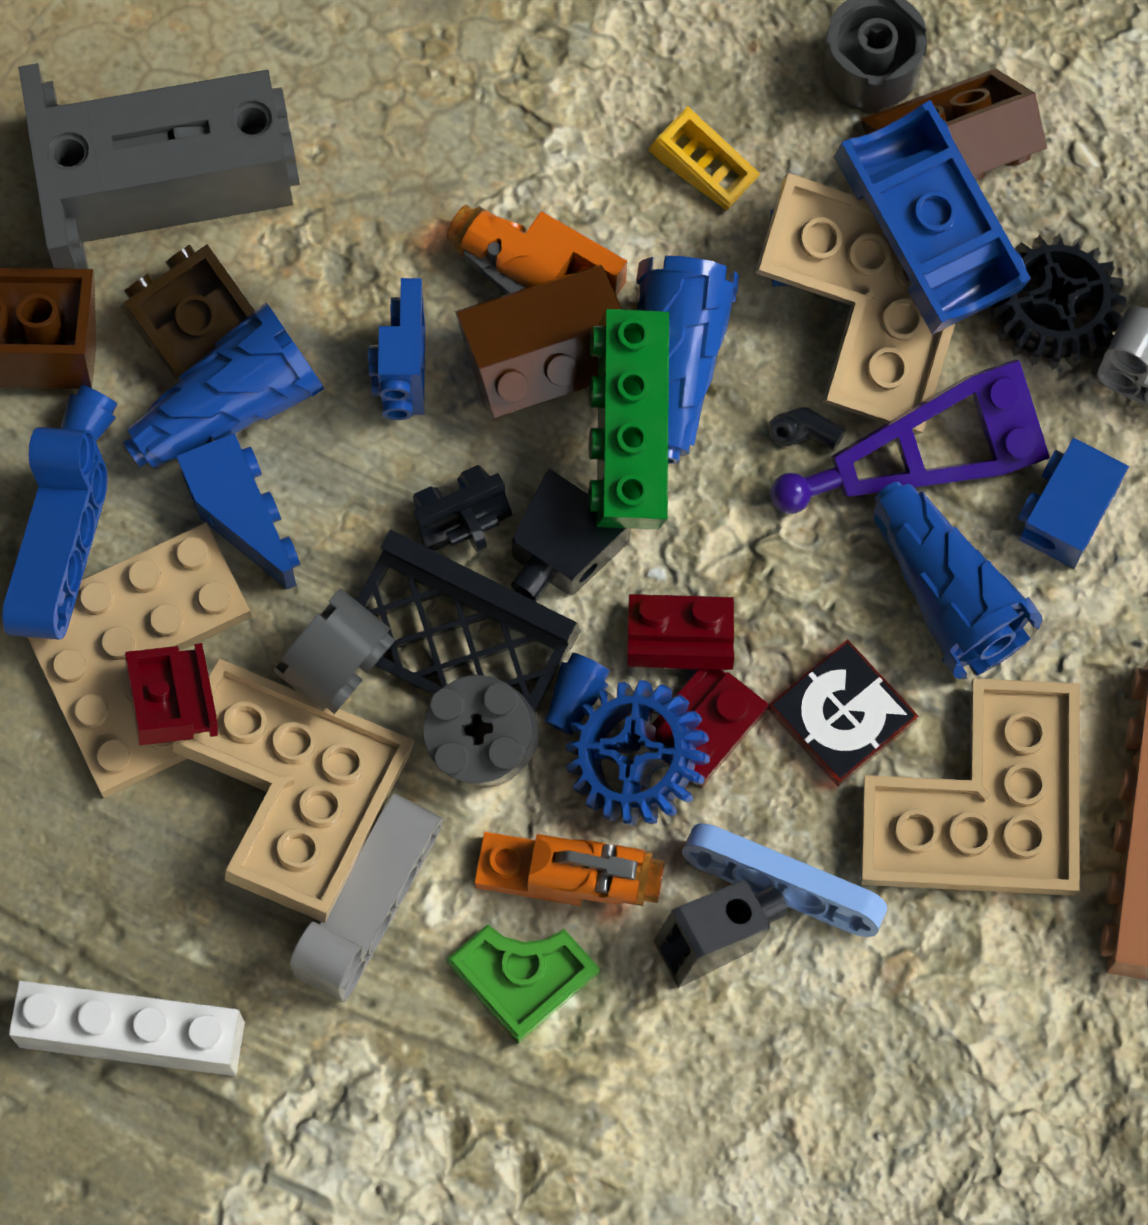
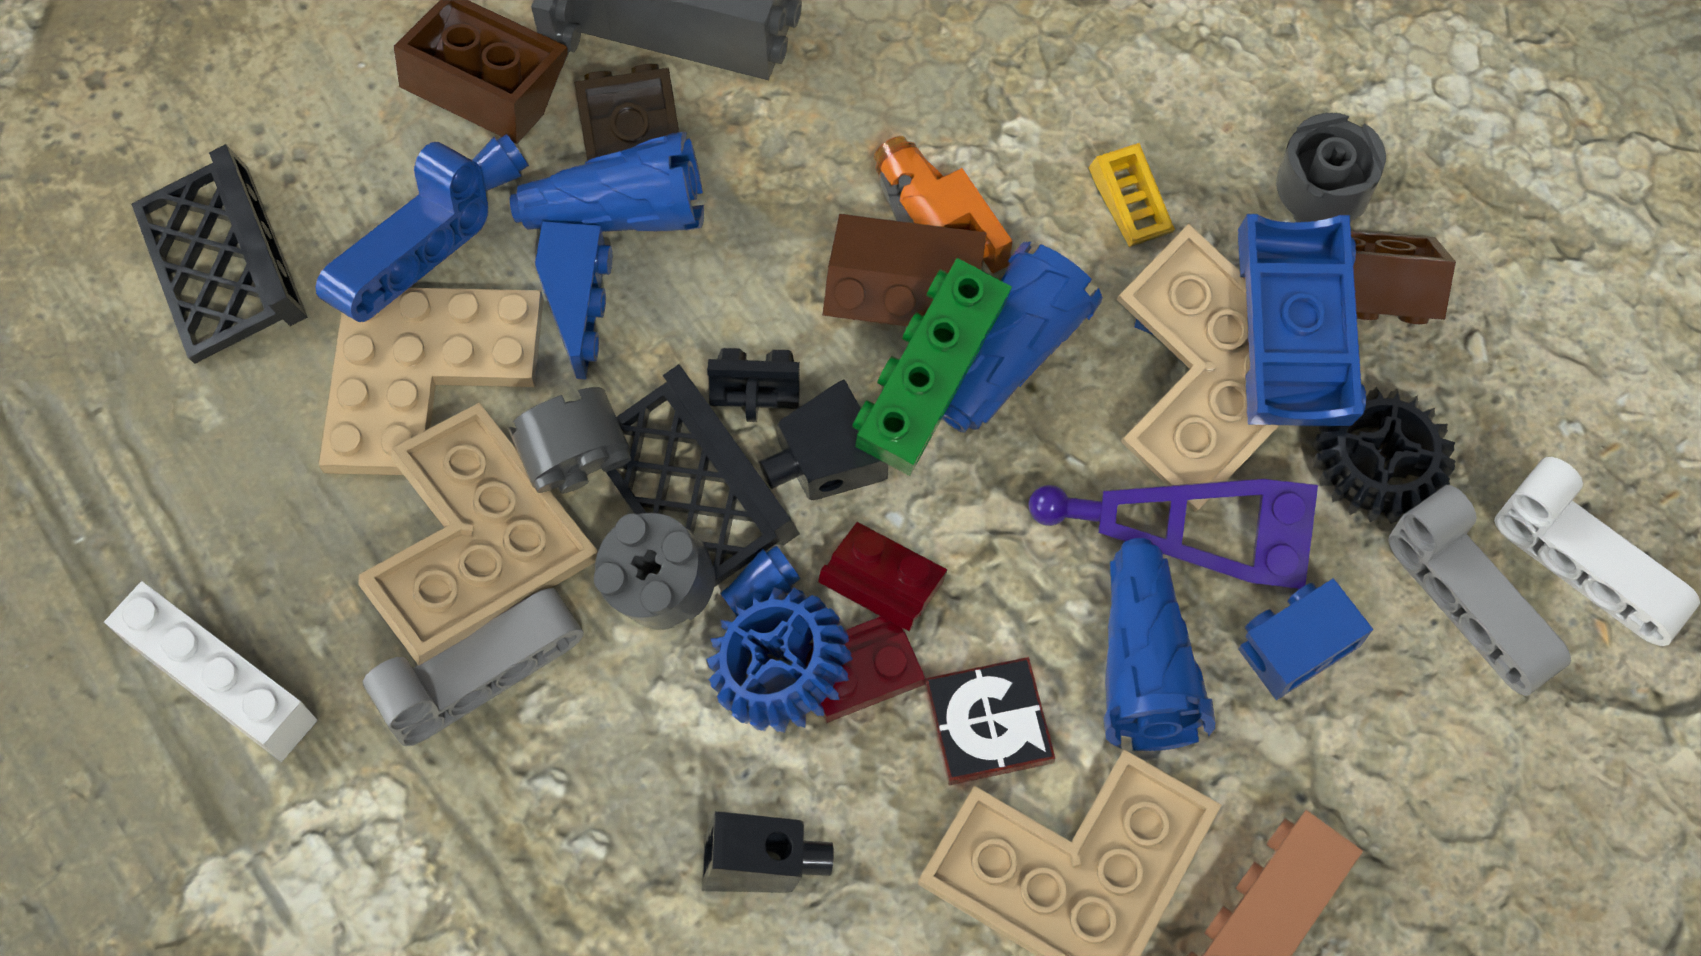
camera: 30 degrees right, 5 degrees down
(170, 694) = (412, 408): dark red plate -> none
(399, 359) = (777, 227): blue plate -> none
(522, 979) = (568, 809): bright green tile -> none
(568, 870) = (663, 733): orange plate -> none
(800, 884) = (853, 846): light blue beam -> none
(804, 425) = (1094, 454): black arm -> none

